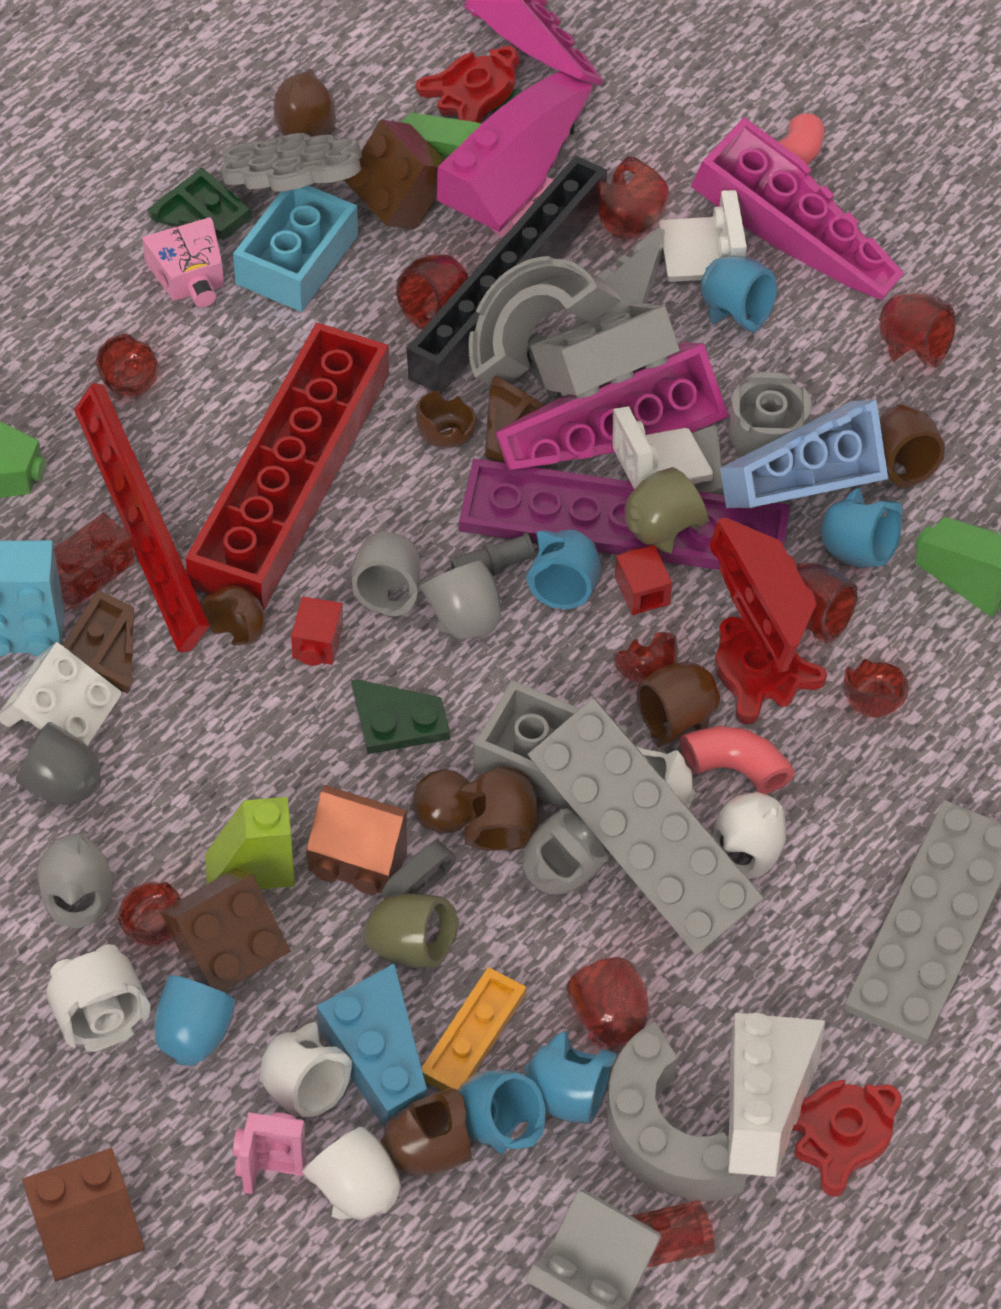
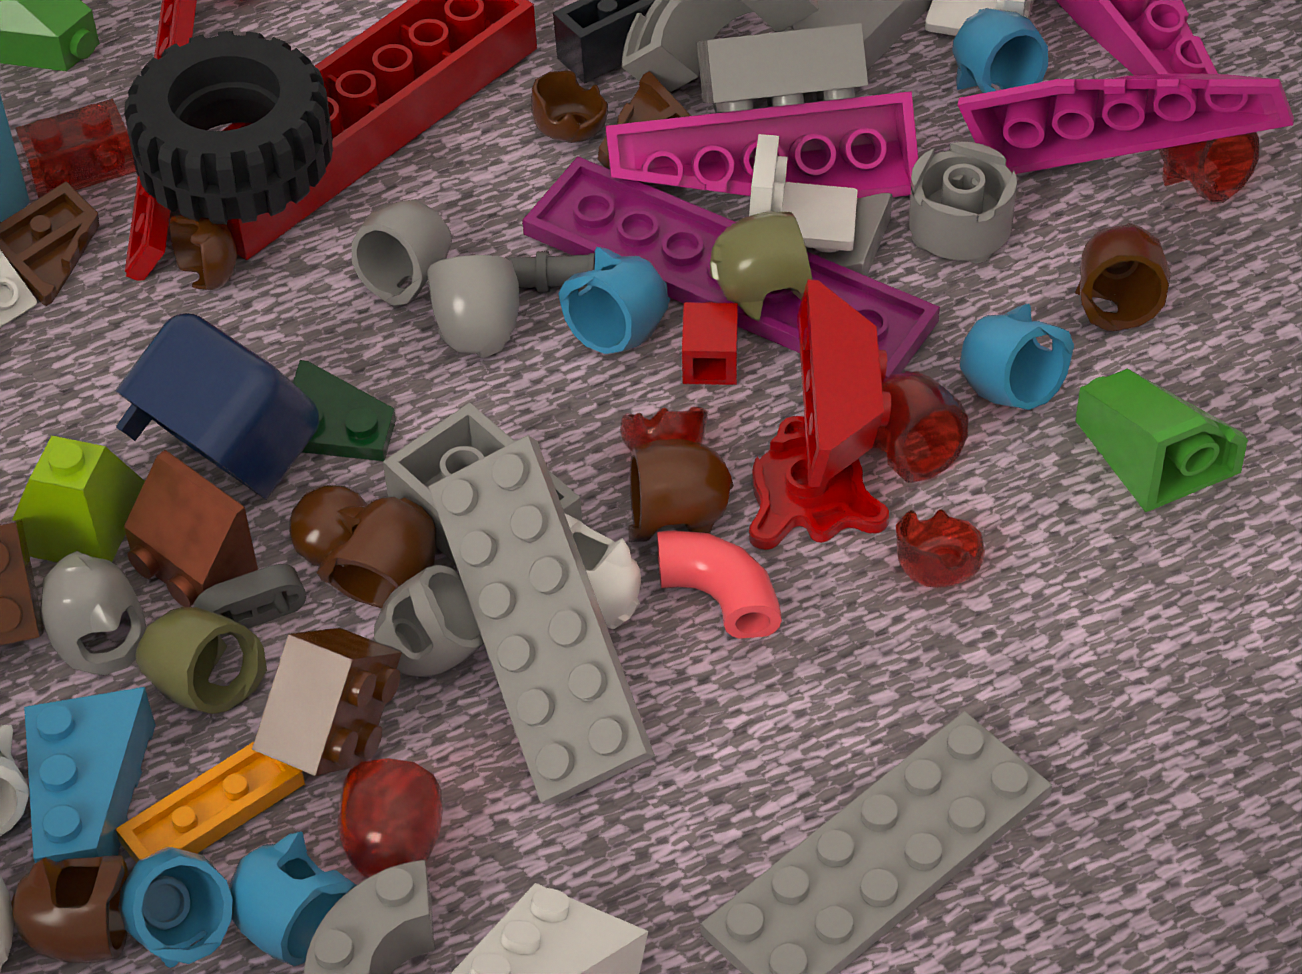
camera: 25 degrees right, 5 degrees down
(222, 476) = (238, 169): none -> black tyre
(308, 916) = (89, 597): none -> light grey piece
(317, 631) = (289, 294): red brick -> none
(334, 735) = (219, 402): none -> dark blue piece
(531, 935) = (327, 701): none -> brick
(753, 826) = (689, 668): white piece -> none
(813, 459) = (987, 257): light blue wedge -> none
(860, 323) = (1118, 116): none -> dark pink wedge

